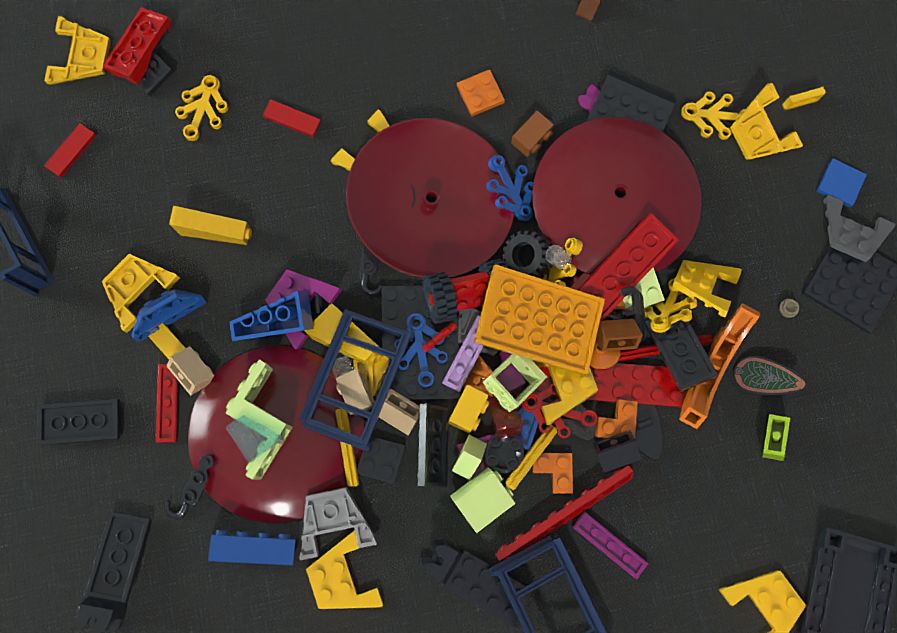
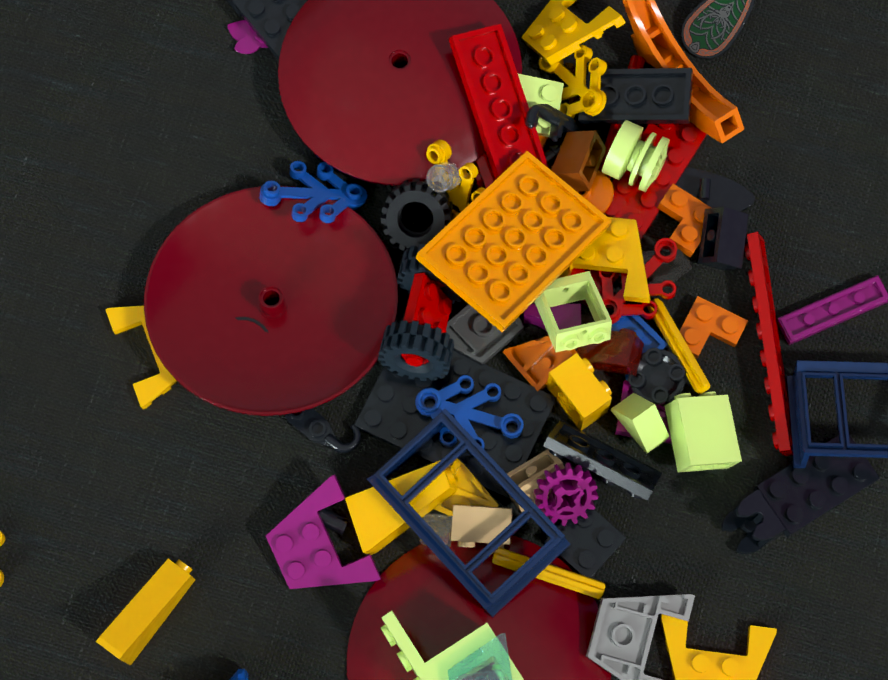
camera: 55 degrees left, 5 degrees down
(279, 317) = (330, 577): blue wedge -> none
(292, 118) = (49, 431): red tile -> none
(397, 433) = (566, 492): none -> magenta gear
(439, 337) = (465, 380): red wheel -> none
(464, 360) = (506, 359): lavender tile -> none
(480, 92) = (158, 168): orange plate -> none
(532, 133) = (254, 131): dark orange brick -> none
(639, 368) = (634, 155): none -> yellowish green wheel
(776, 437) = (798, 46): lime brick -> none

